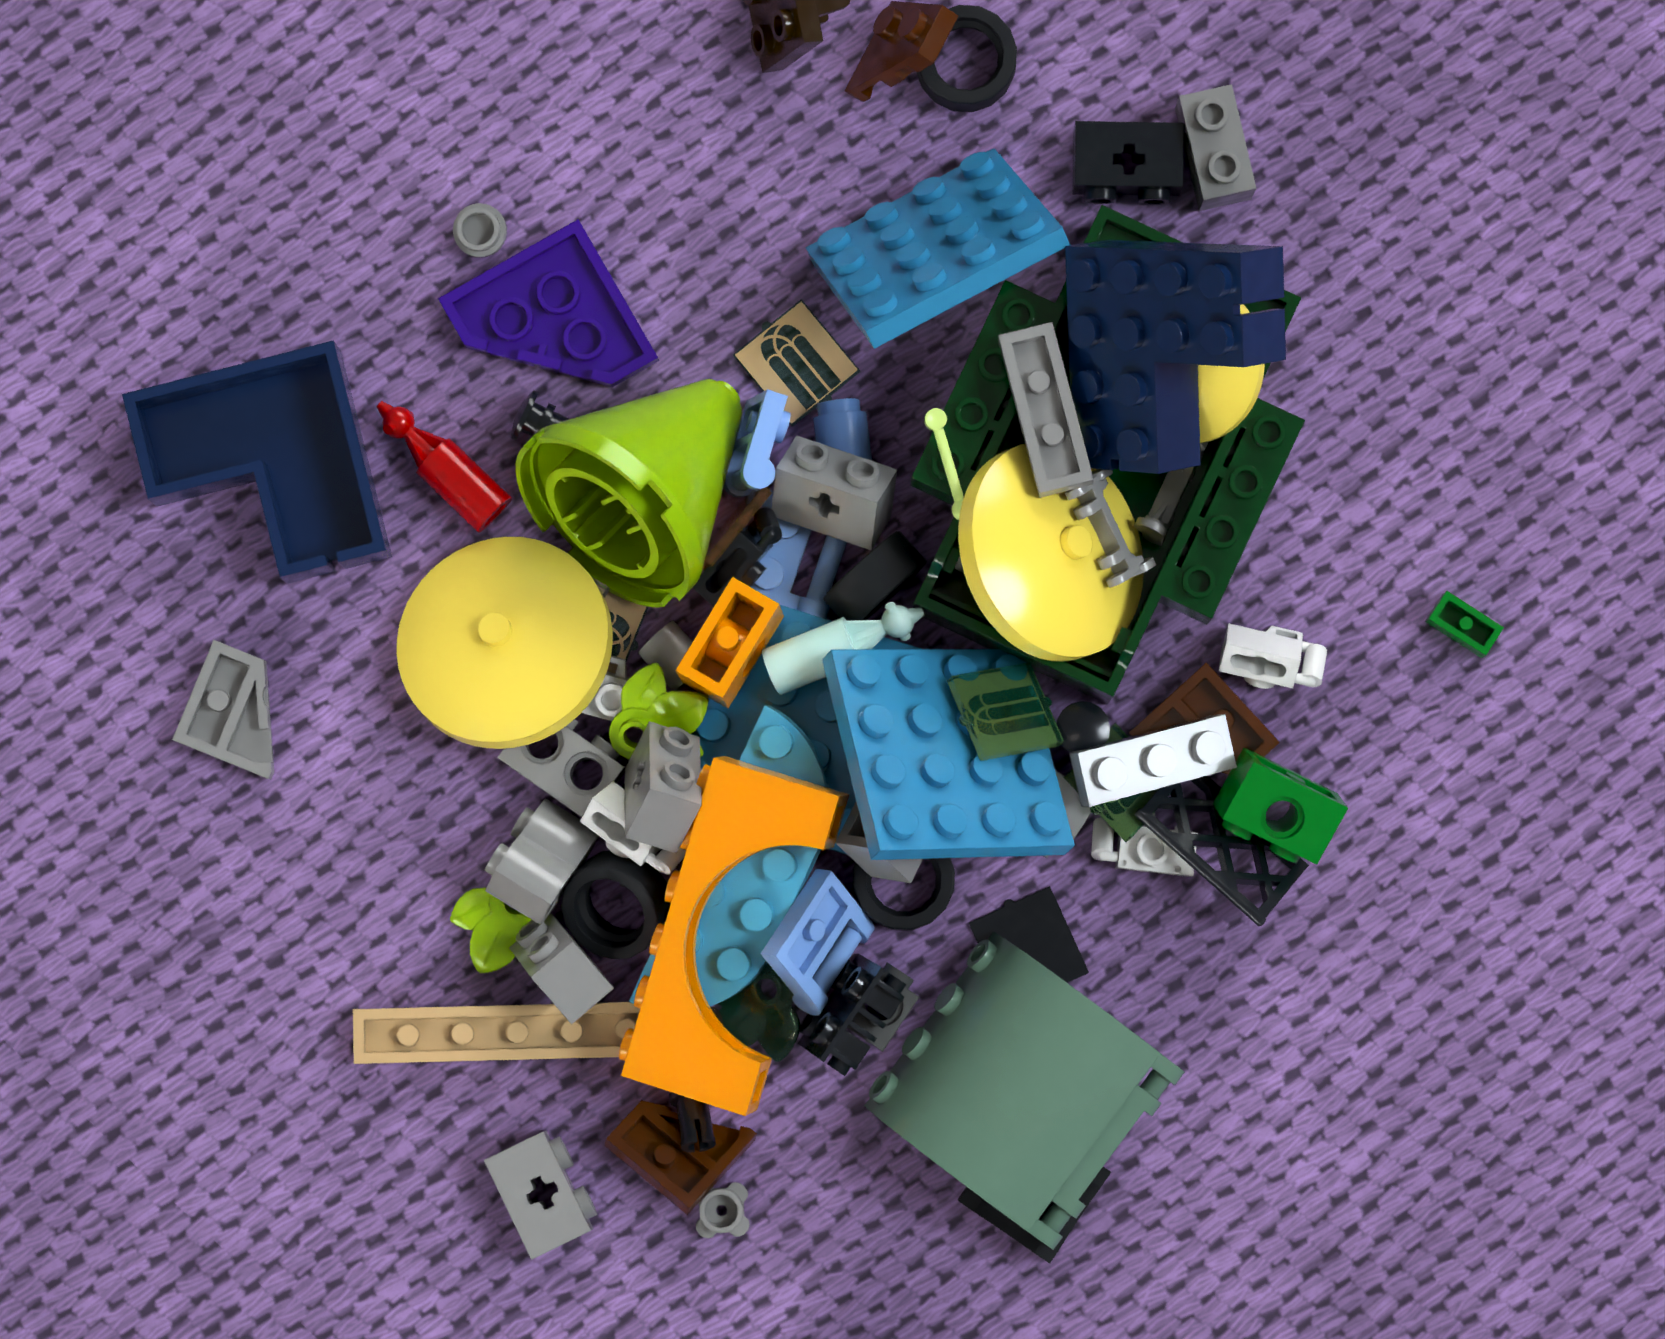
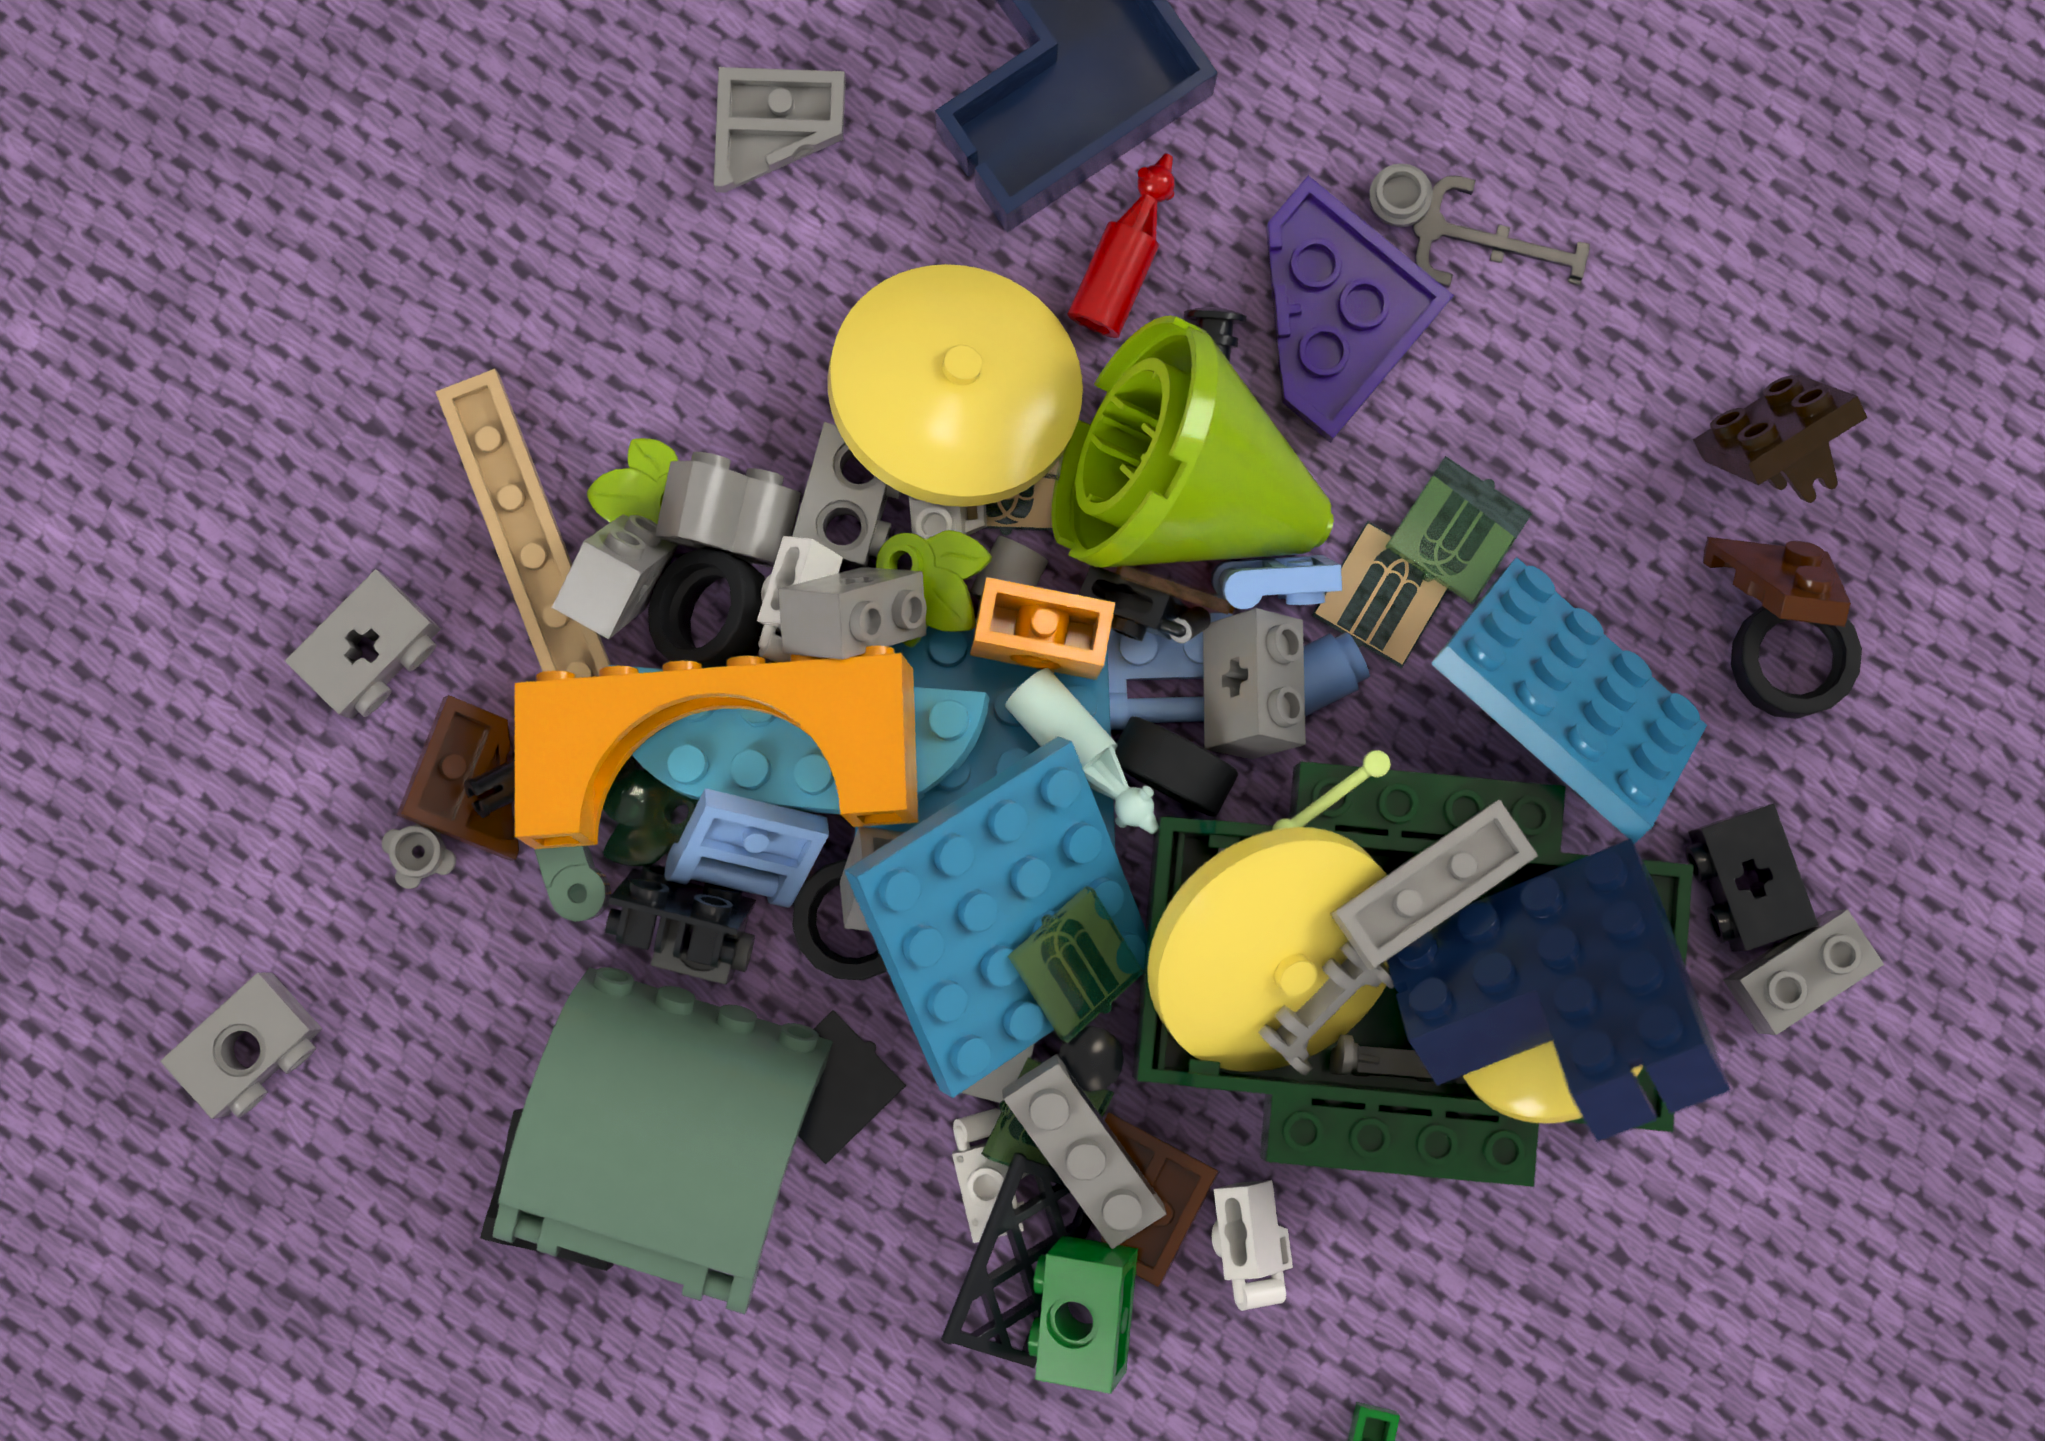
camera: 65 degrees right, 0 degrees up
(514, 212) = (1435, 226): none -> piece
(767, 285) = (1458, 530): none -> clear green piece
(796, 1092) = (573, 882): none -> sand green leg

